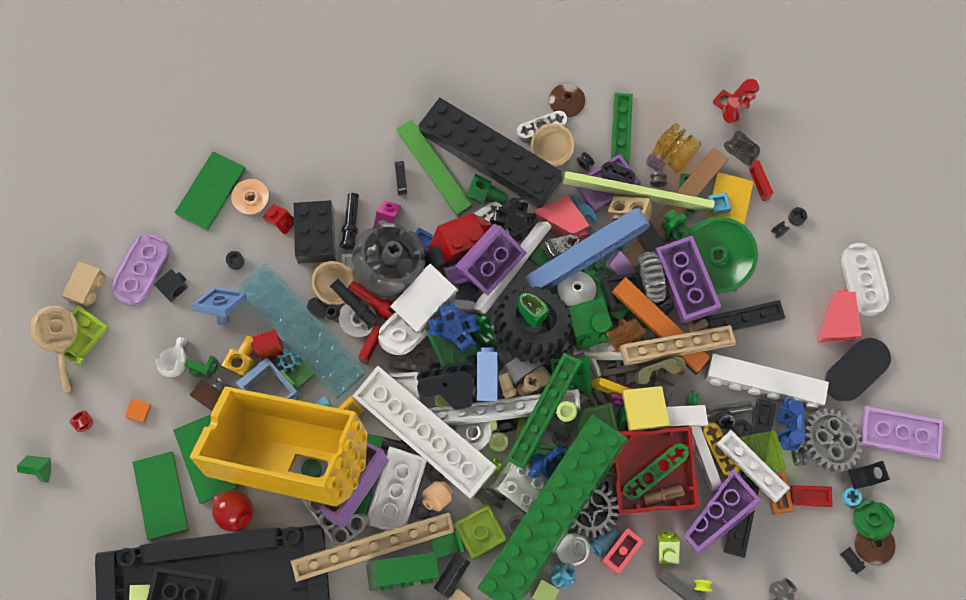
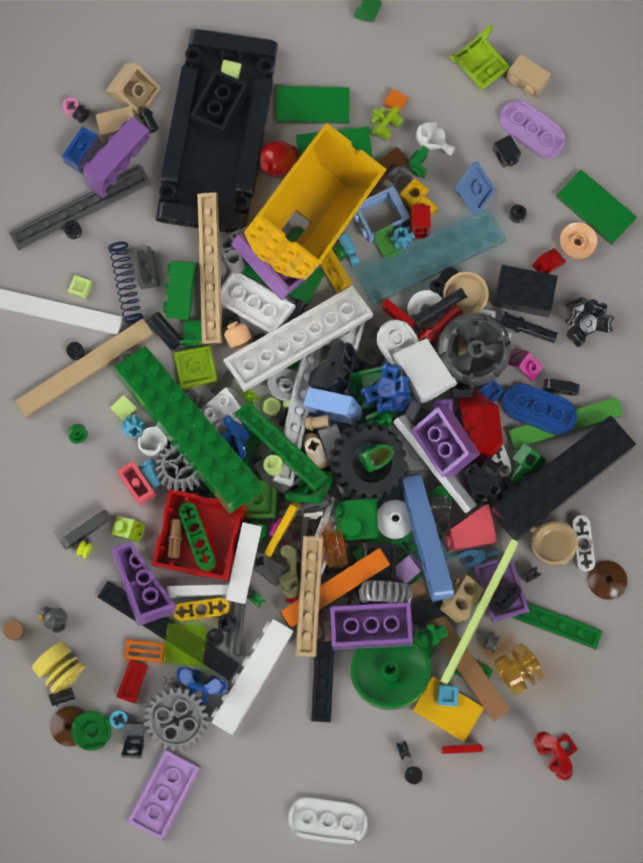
camera: 110 degrees right, 5 degrees up
(54, 331) = (487, 42): tan piece -> none
(81, 419) = (399, 52): red tile -> none
(164, 416) = (391, 117): none -> lime hips
(327, 171) = (585, 321): none -> black piece
(427, 192) = (539, 409): none -> blue tile
(645, 408) = (256, 542): light yellow tile -> none
(655, 163) = (512, 643): tile -> none
(740, 147) = (507, 742): clear smoke piece -> none
(753, 466) = (174, 630): white tile -> none
(830, 570) = (56, 665): none -> light yellow wheel
(841, 319) = (292, 776): coral slope -> none
(857, 369) = (238, 775): black tile -> none

